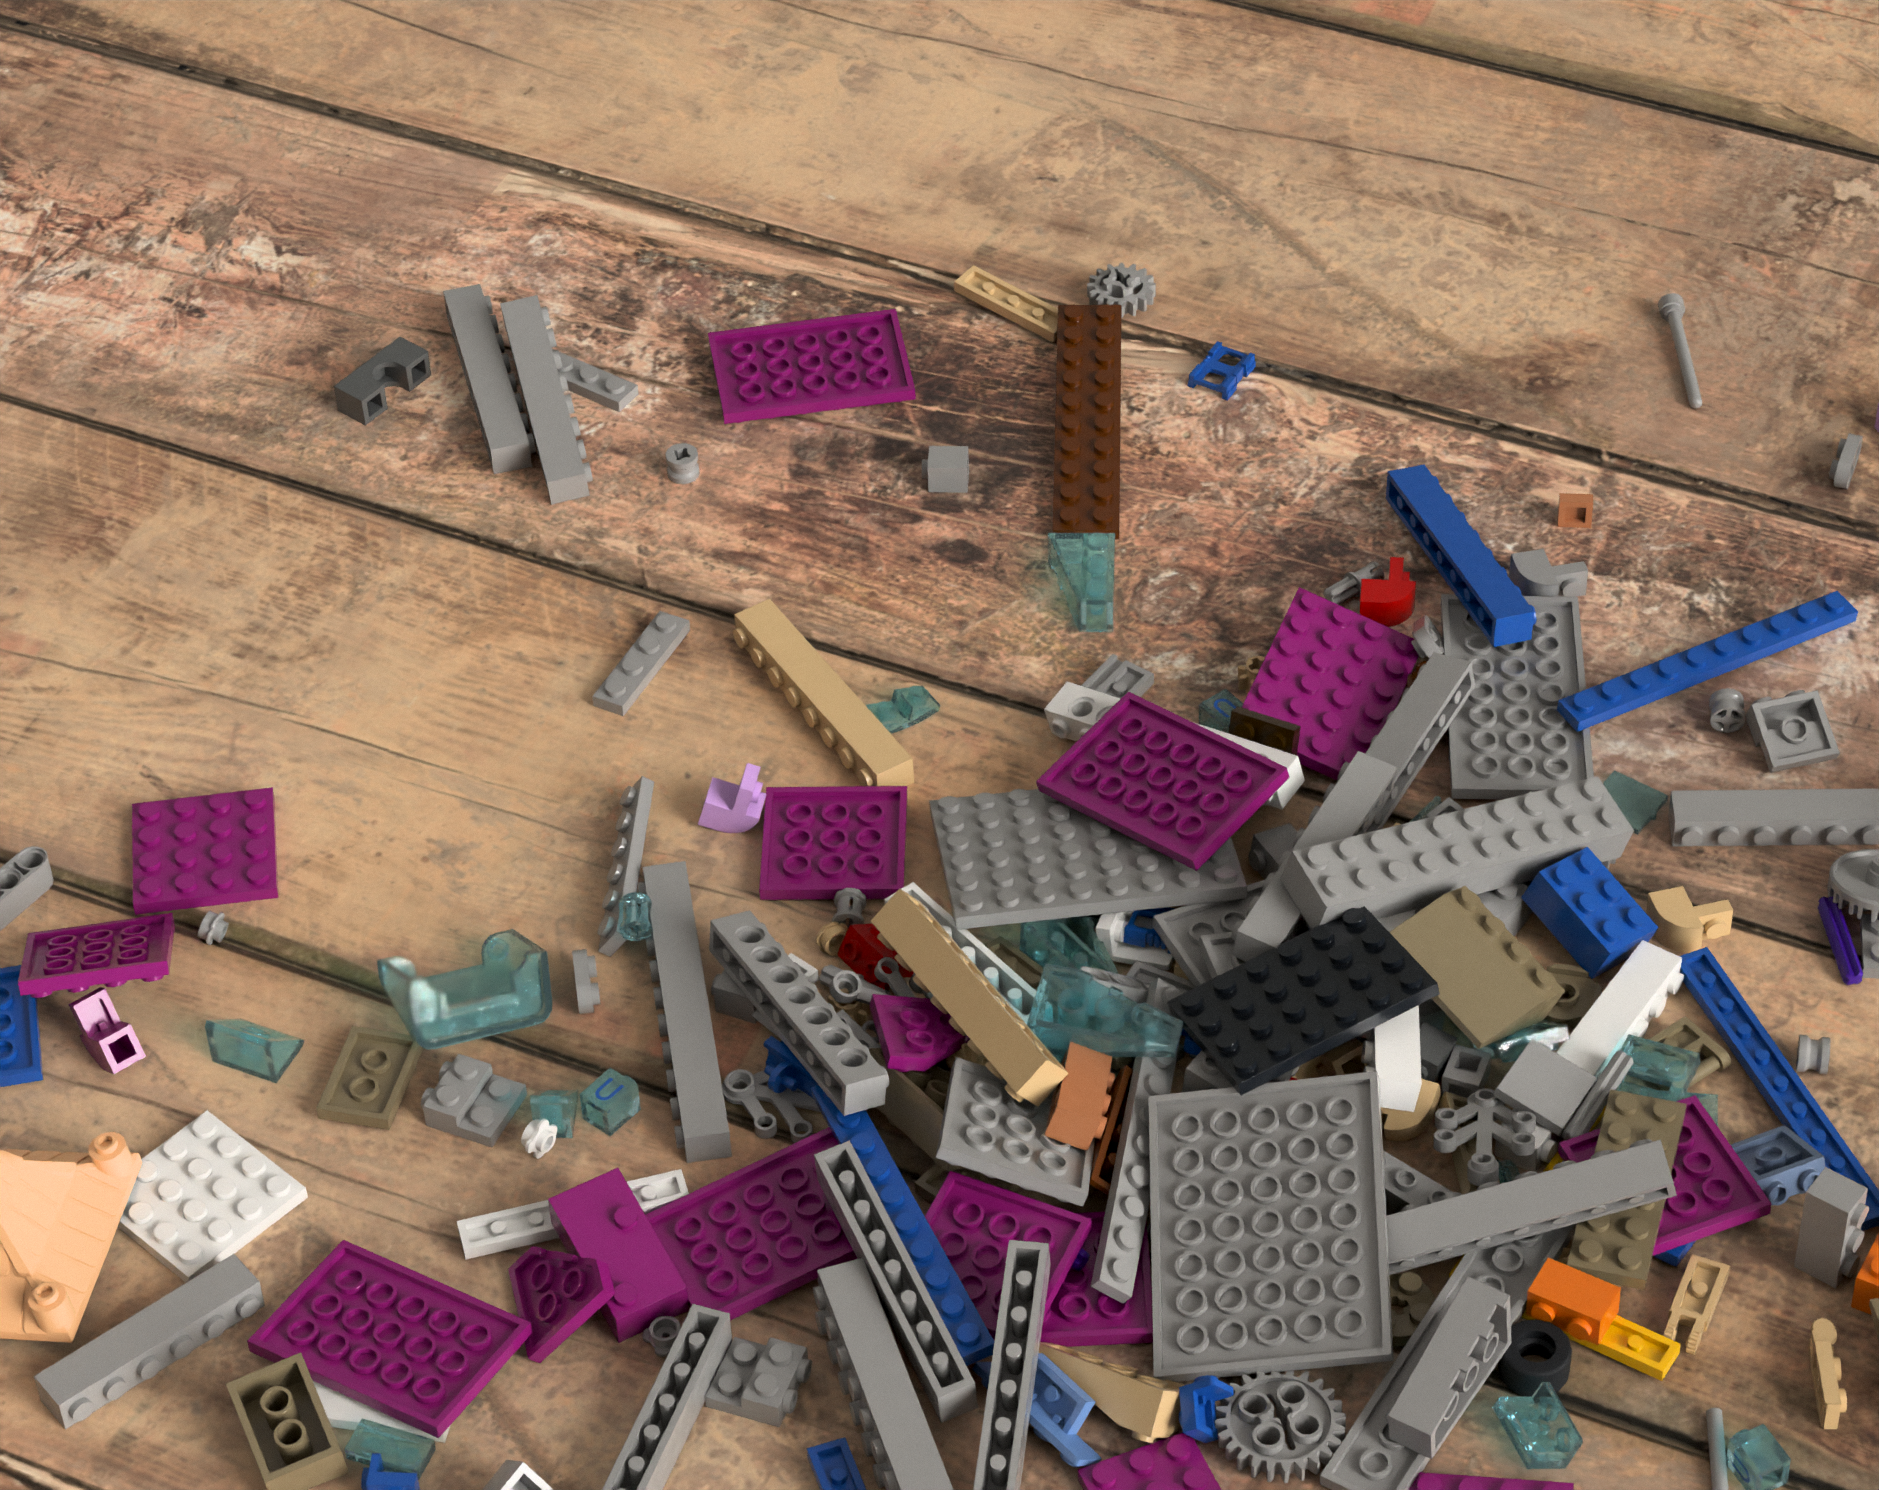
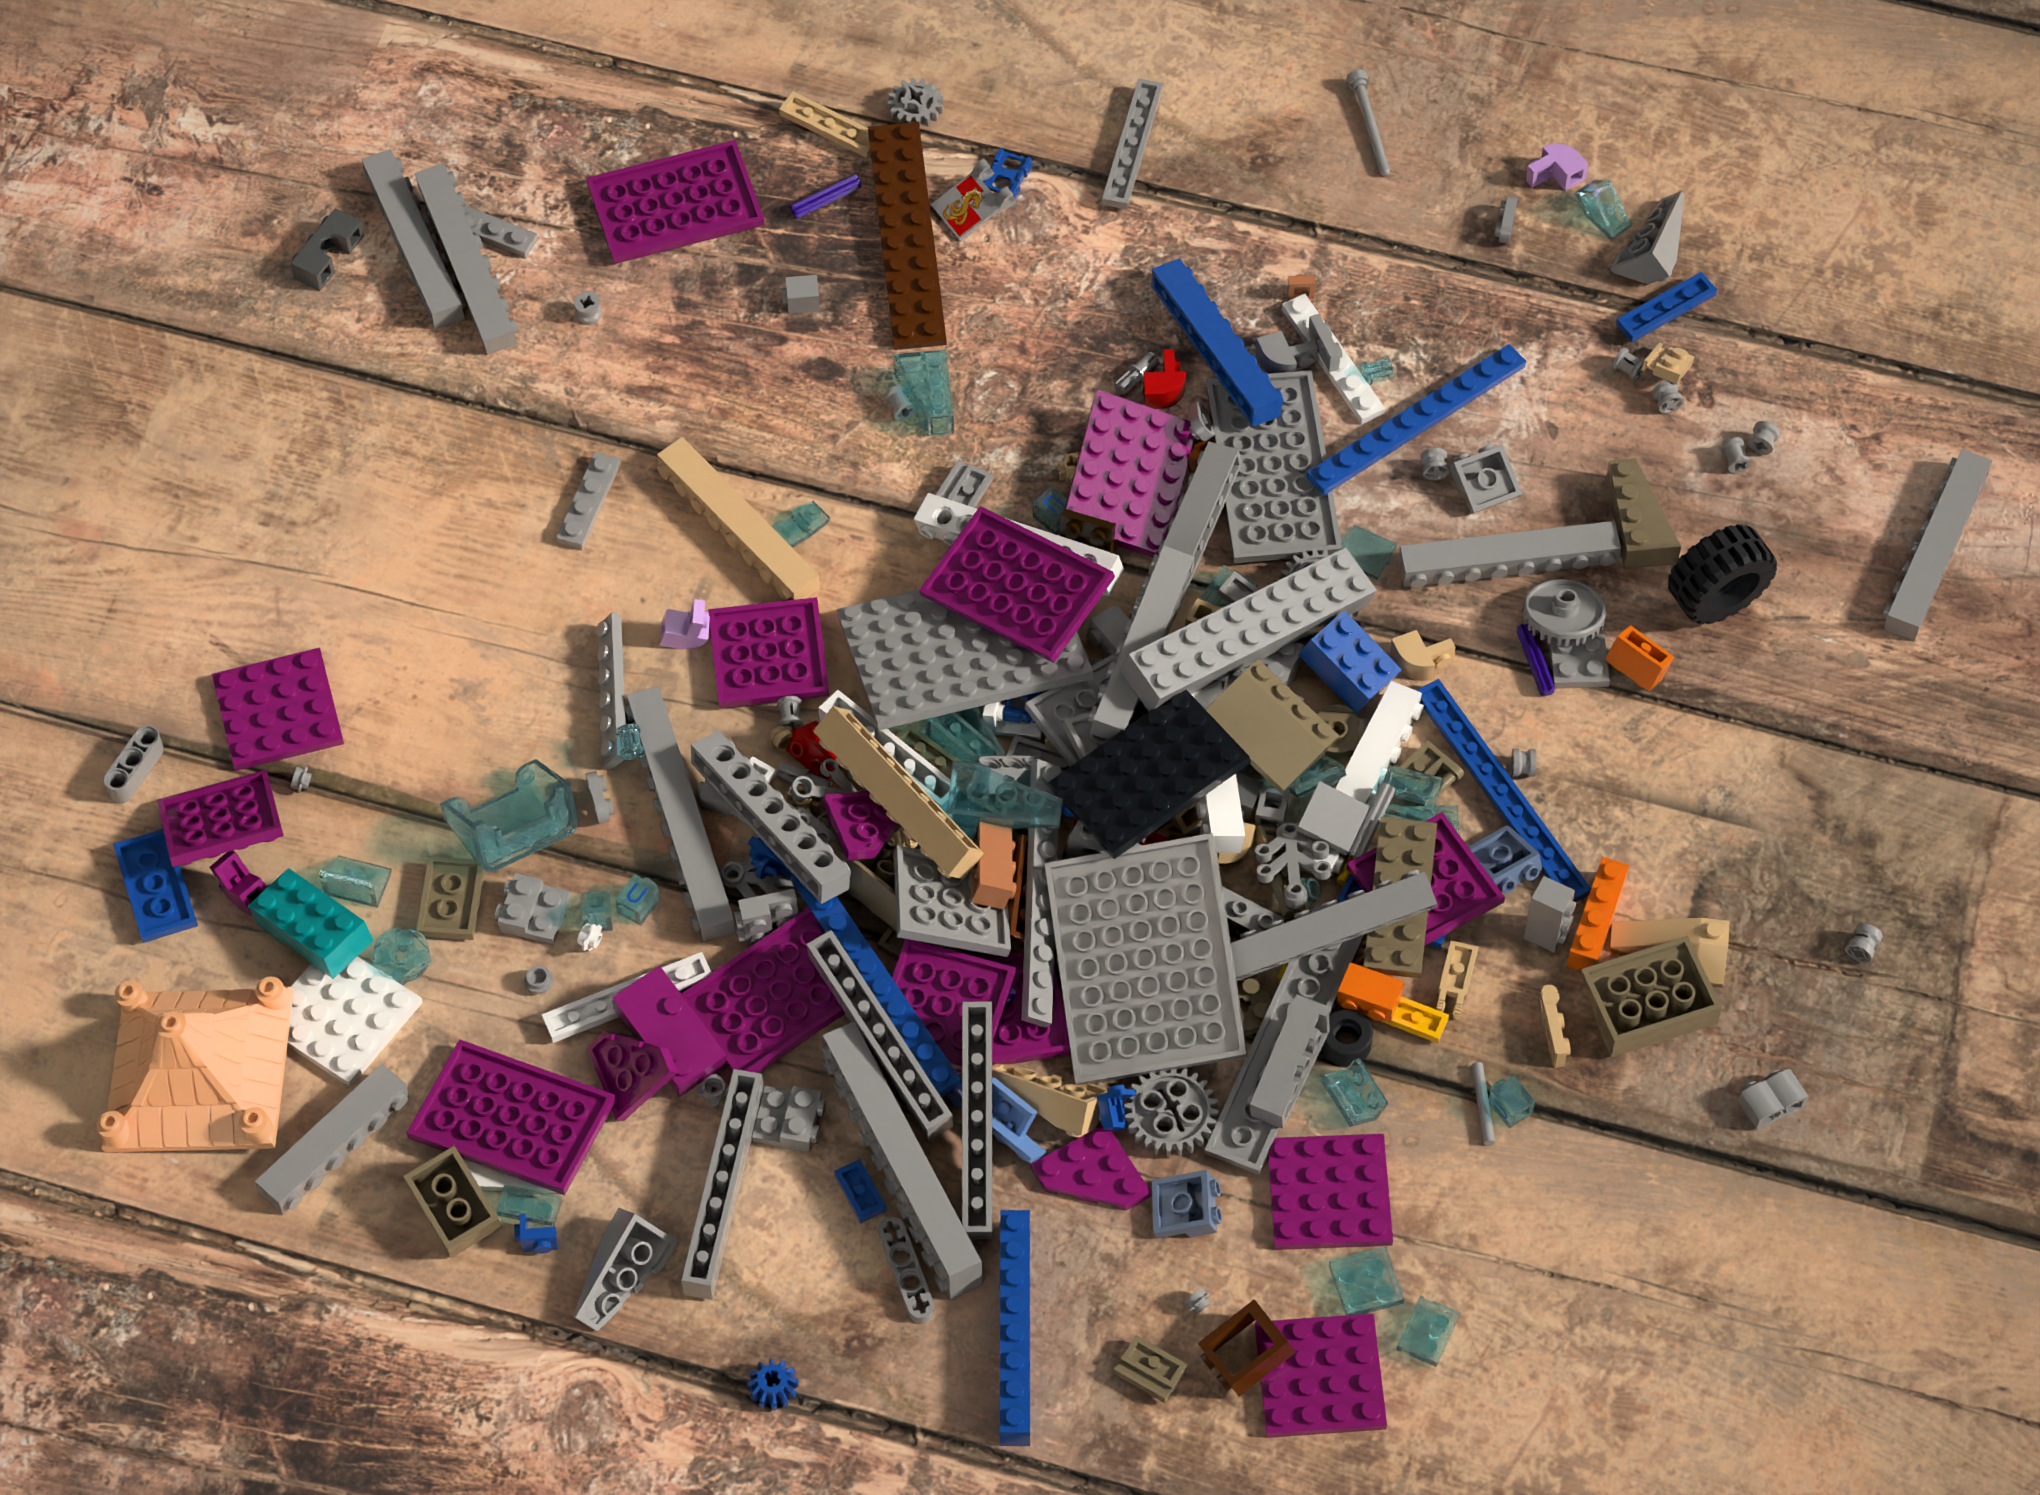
camera: 10 degrees left, 15 degrees up
(183, 1083) = (310, 923): none -> teal brick
(296, 1153) = (404, 940): none -> clear light blue plate
(462, 1182) = (538, 980): none -> light grey plate
(769, 1126) = (764, 914): none -> light grey plate
(995, 375) = (825, 196): none -> dark purple axle
(1051, 596) = (900, 403): none -> light grey bush
(1175, 391) = (971, 202): none -> flag
(1382, 350) = (1132, 144): none -> light grey plate
(1600, 570) = (1322, 335): none -> light grey plate
(1609, 592) = (1347, 378): none -> white plate
(1662, 605) = (1377, 370): none -> clear light blue bush

